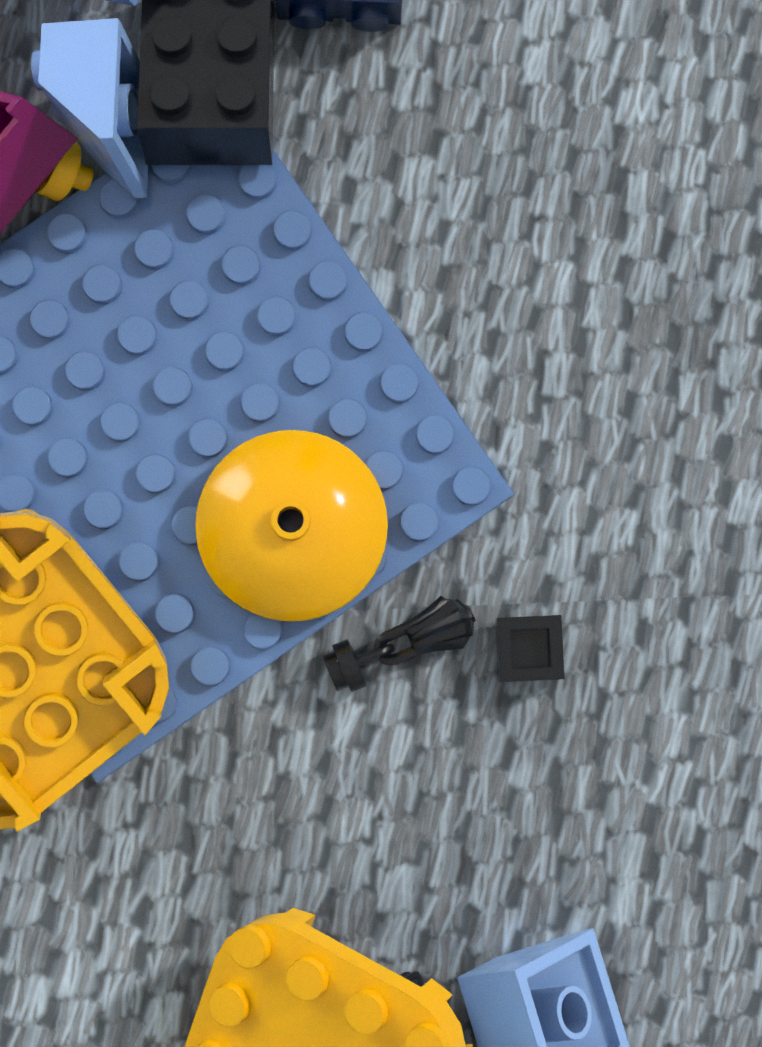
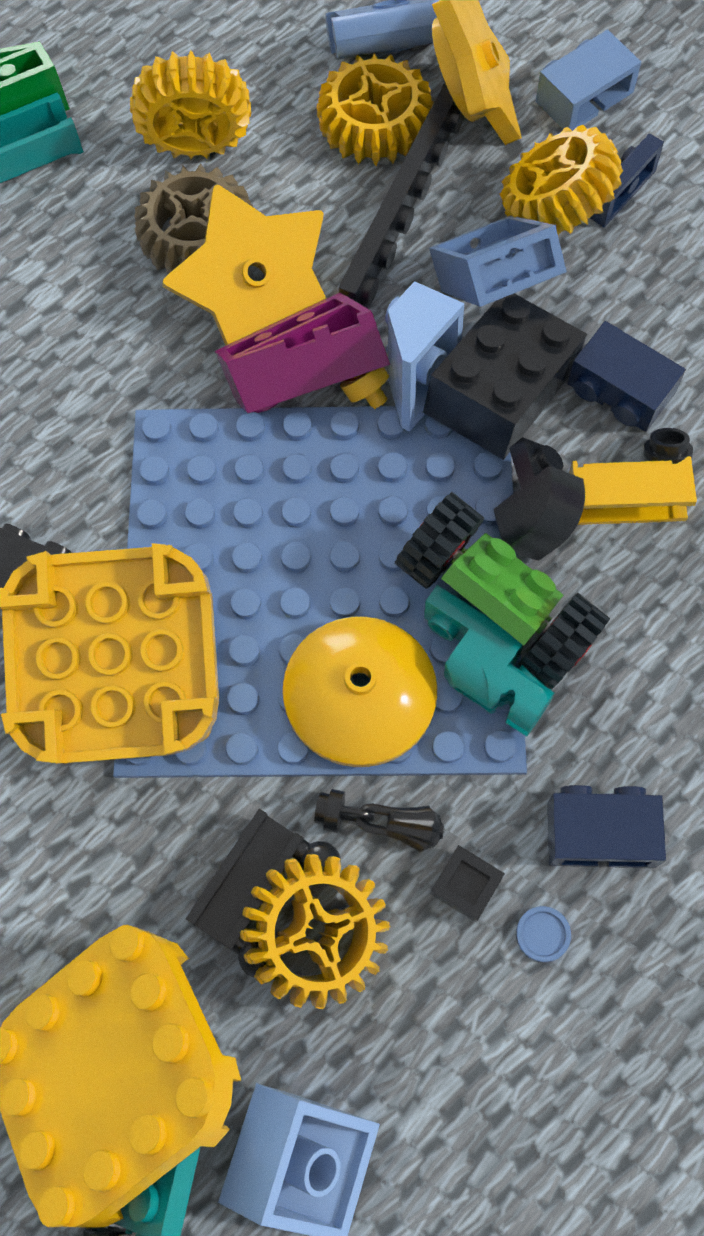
camera: 45 degrees right, 15 degrees down
(312, 794) = (259, 849): none -> black gear
(355, 191) = (546, 505): none -> black brick
(373, 322) = (502, 588): none -> plate
(402, 413) = (484, 662): none -> teal plate
(428, 114) = (636, 491): none -> yellow window
(439, 33) = (668, 445): none -> black plate
(447, 759) = (325, 951): none -> yellow gear
(630, 503) = (606, 827): none -> dark blue piece
(632, 645) = (543, 934): none -> medium blue piece

